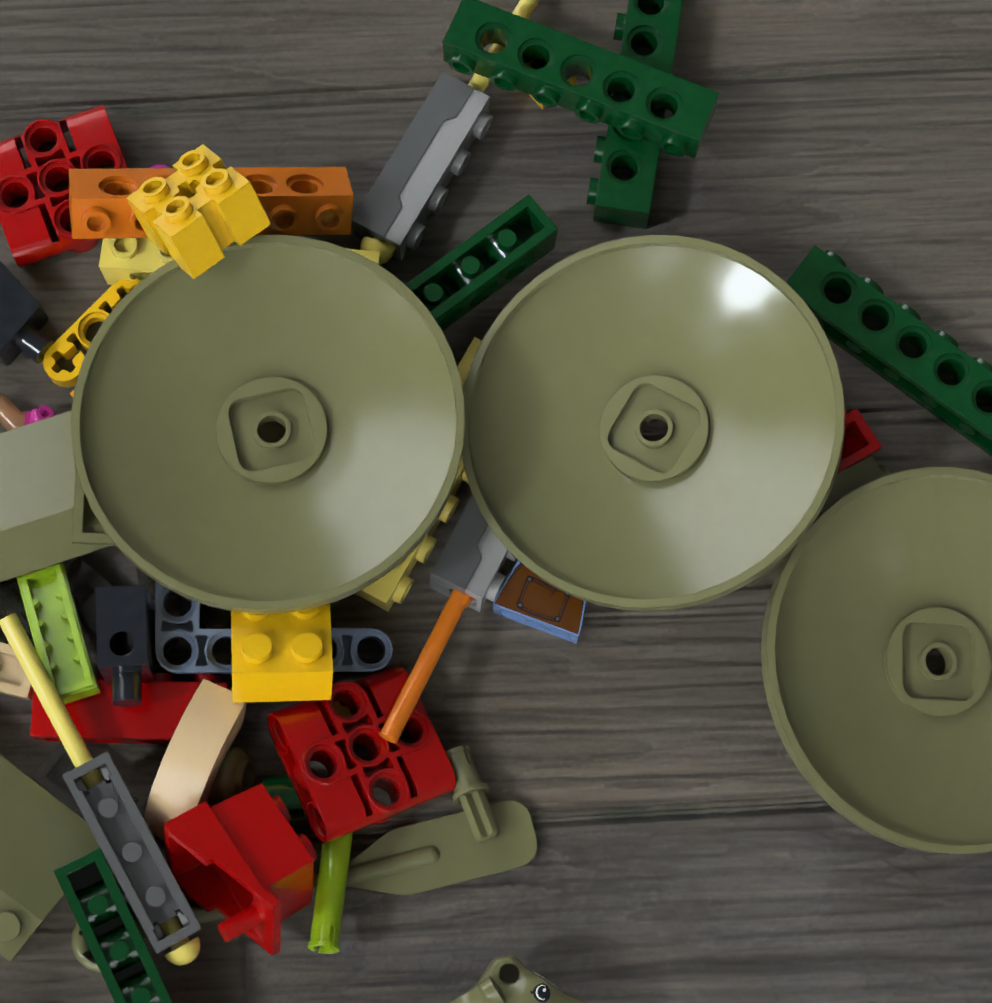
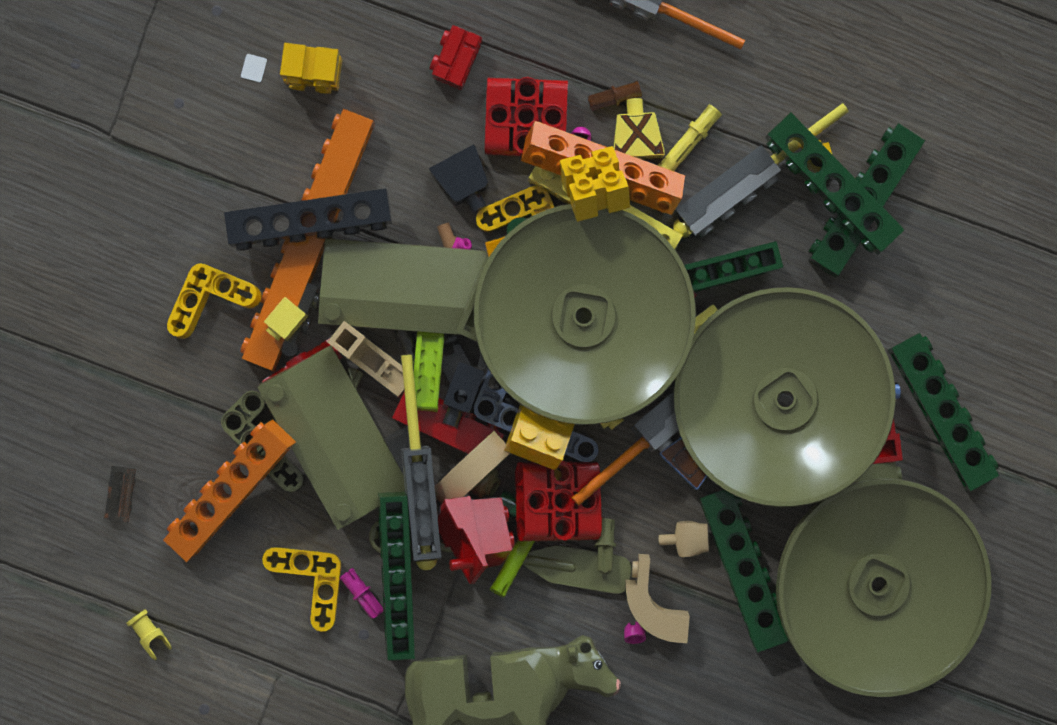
camera: 25 degrees right, 10 degrees up
(187, 100) = (614, 96): none -> reddish brown axle
(248, 132) = (638, 132): none -> light yellow torso
(336, 100) = (690, 139): none -> light yellow pin
(582, 918) = (634, 633): none -> dark pink hinge
(601, 722) = (689, 537): none -> tan piece
(608, 879) = (658, 621): none -> tan arch
(787, 831) = (761, 637): none -> dark green brick

